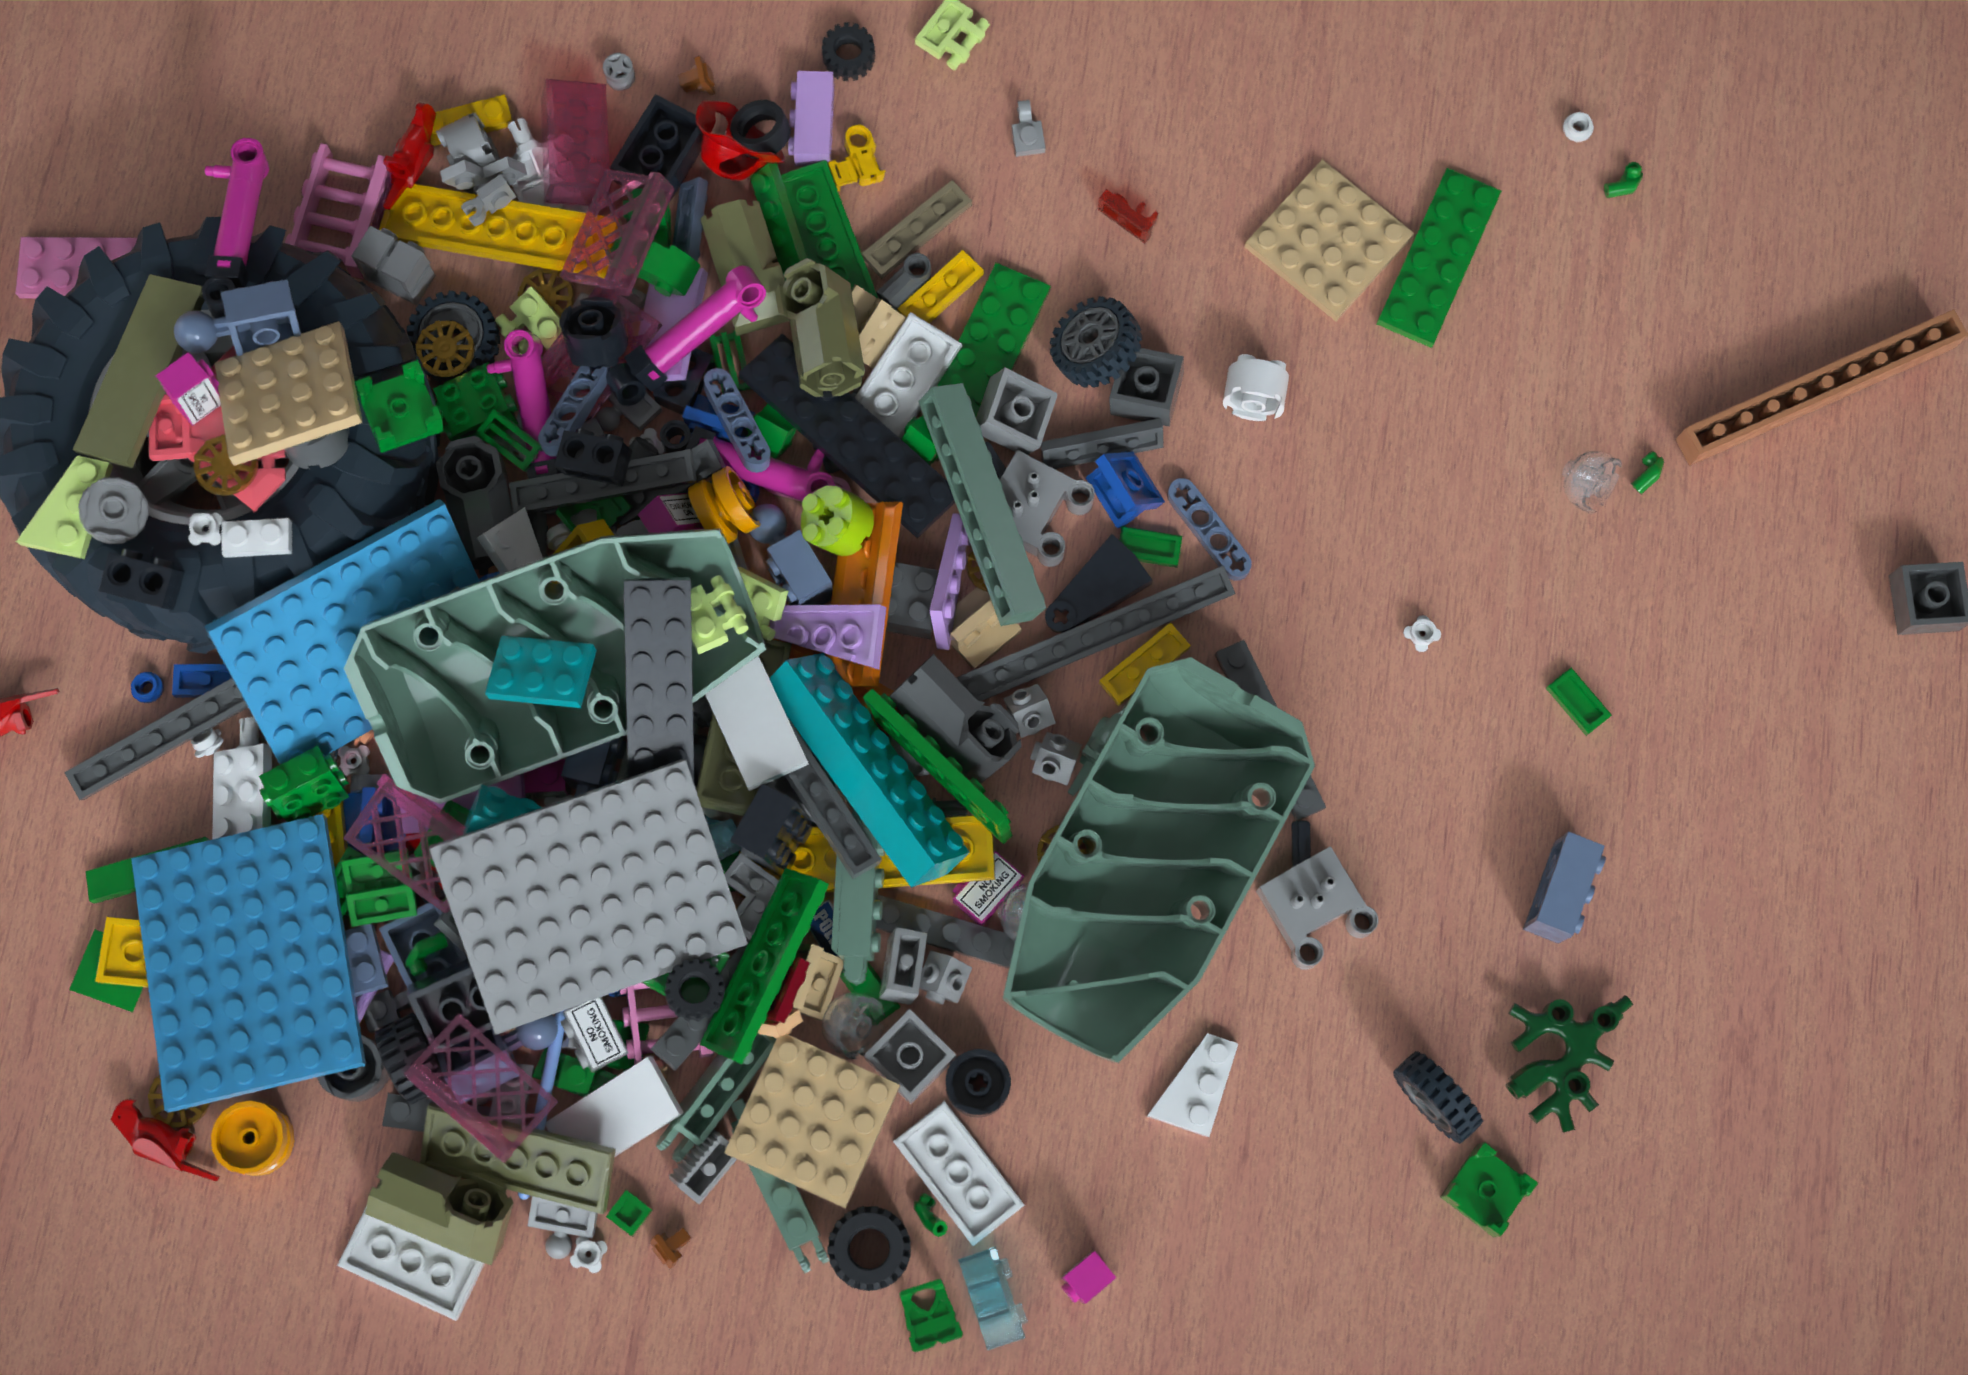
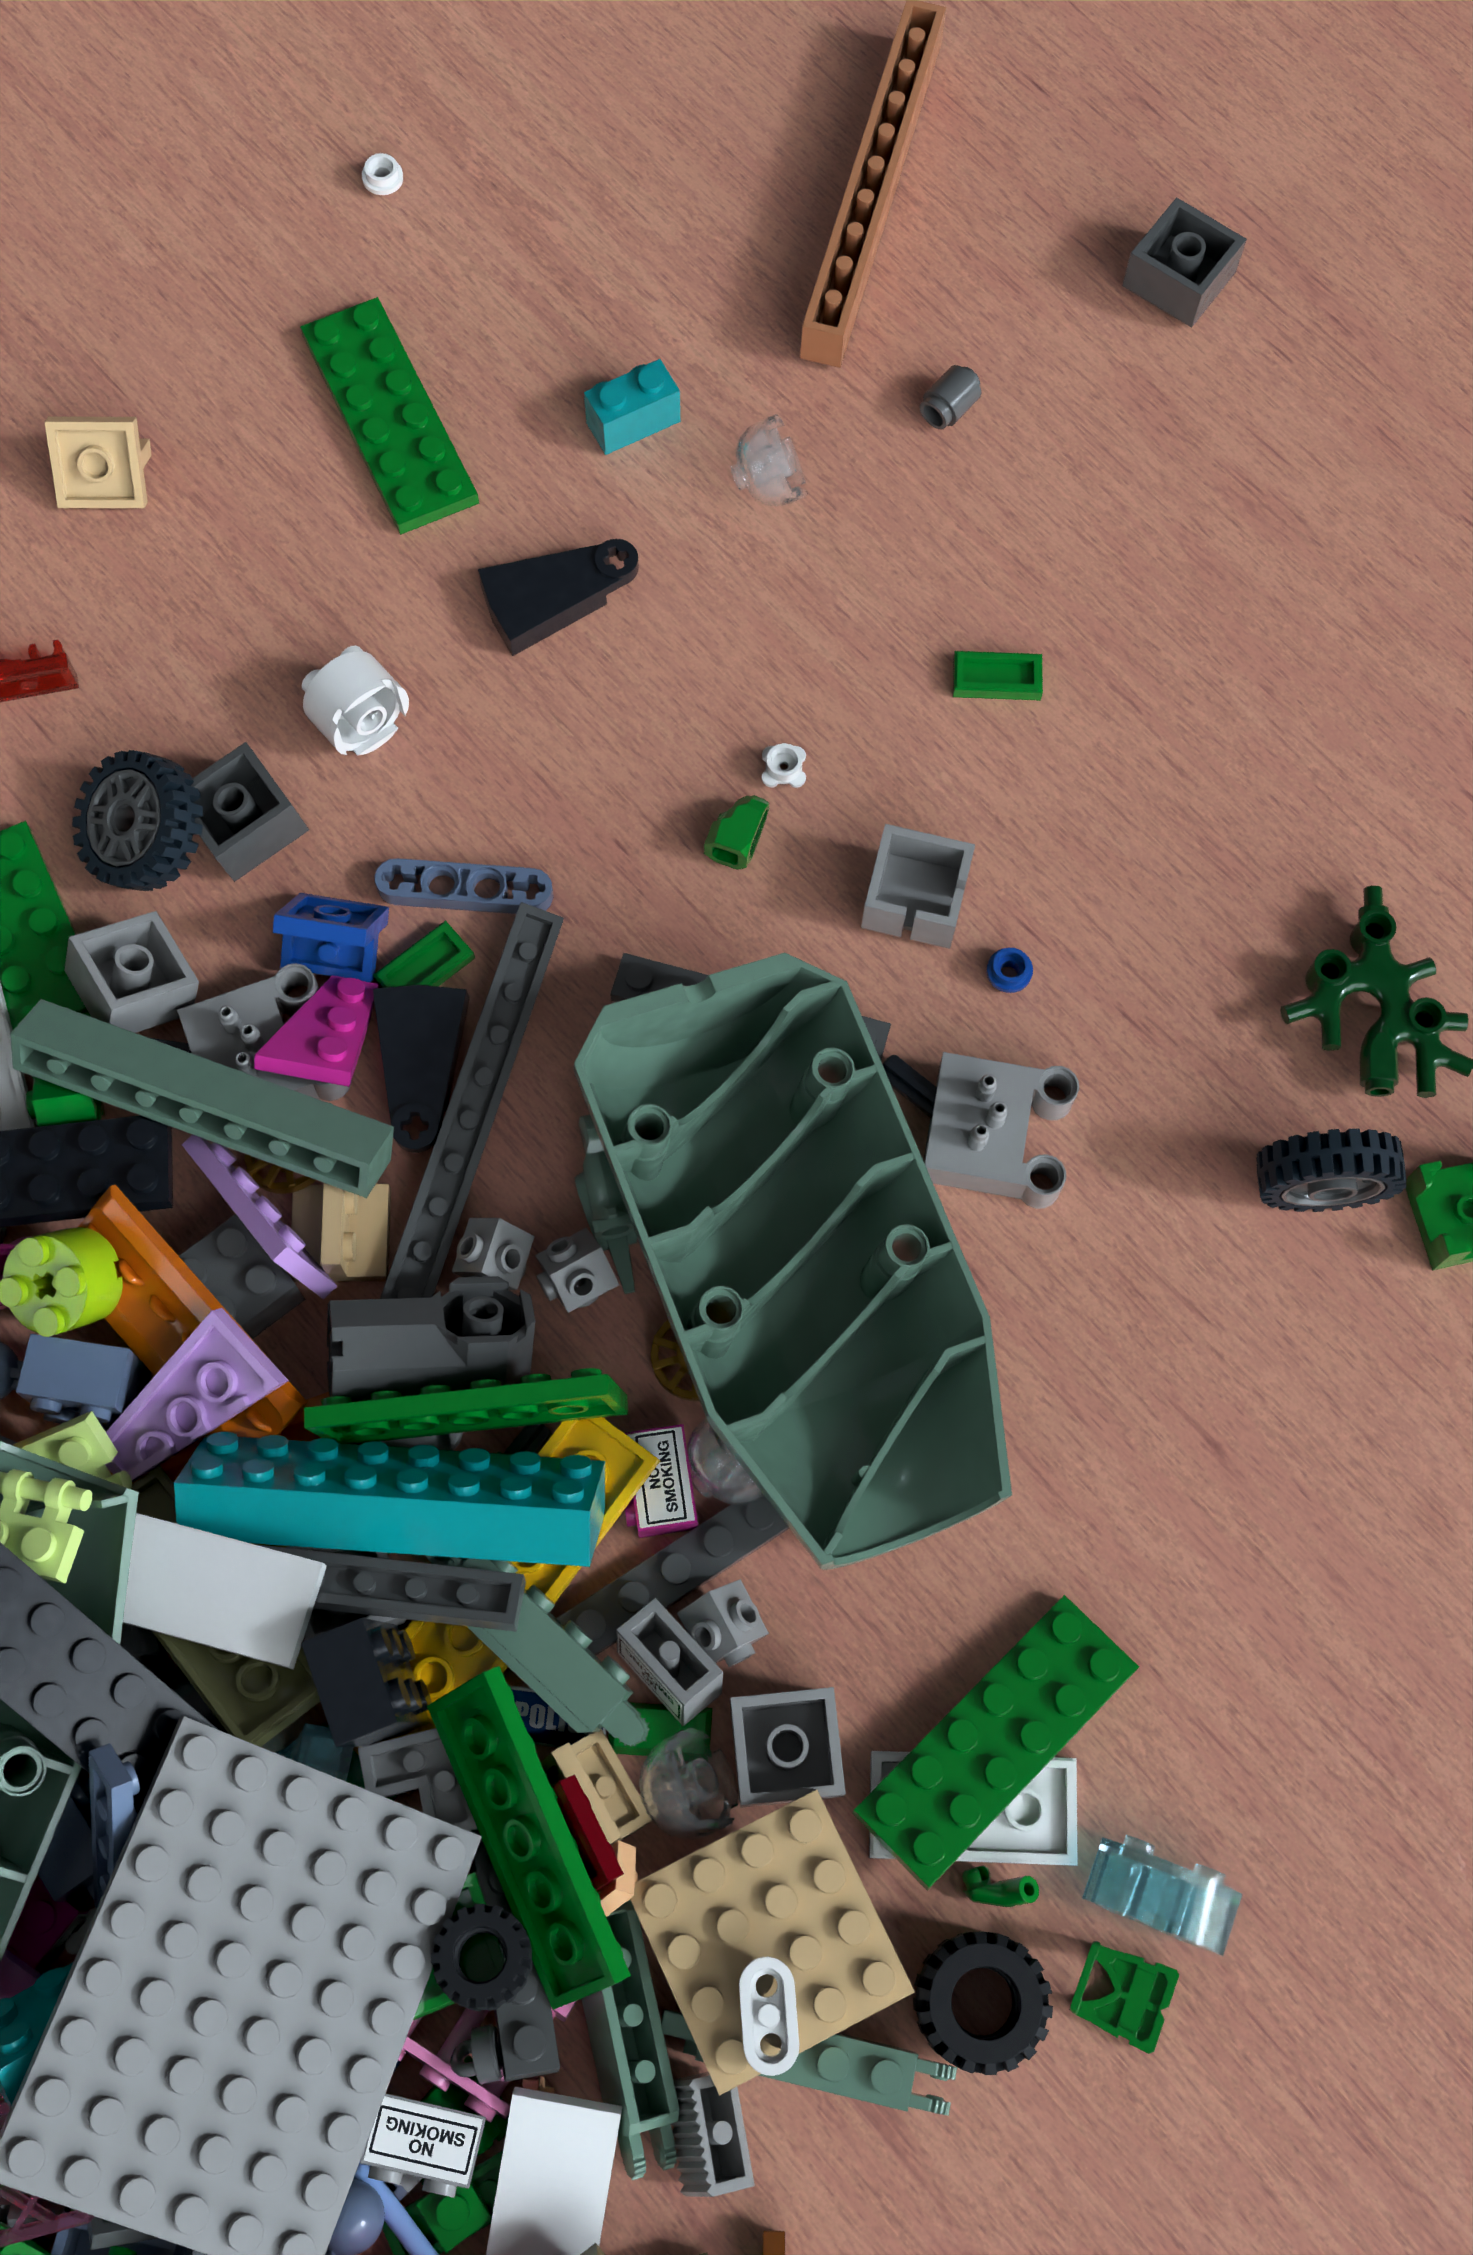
camera: 50 degrees left, 5 degrees down
(619, 766) = (111, 1811): none -> sand blue plate
(655, 1029) = (485, 2054): none -> dark grey tile
(775, 1142) = (769, 2015): none -> white plate
(966, 1068) = (891, 1661): black brick -> none
(1000, 1157) = (995, 1742): none -> green plate
(1067, 531) = (323, 1035): none -> dark pink wing
(1087, 1278) = (1231, 1755): dark pink brick -> none
(1091, 445) = (251, 927): dark grey plate -> none
(1159, 650) = (553, 1083): yellow plate -> none
(1198, 1087) = (1097, 1434): white wing -> none
(1271, 142) = (97, 462): none -> tan bracket
(1329, 240) = (262, 503): tan plate -> none
(1362, 641) = (737, 832): none -> green rock
(1412, 430) = (554, 590): none -> black piece
(1412, 758) = (915, 885): none -> light grey piece
(1420, 840) = (1009, 958): none -> blue plate
(1559, 378) = (632, 406): none -> teal brick
(1565, 888) = (1197, 849): sand blue brick -> none
(1628, 183) = (487, 181): green arm -> none
(1651, 475) = (817, 407): green arm -> none
(1724, 540) = (950, 397): none -> dark grey brick

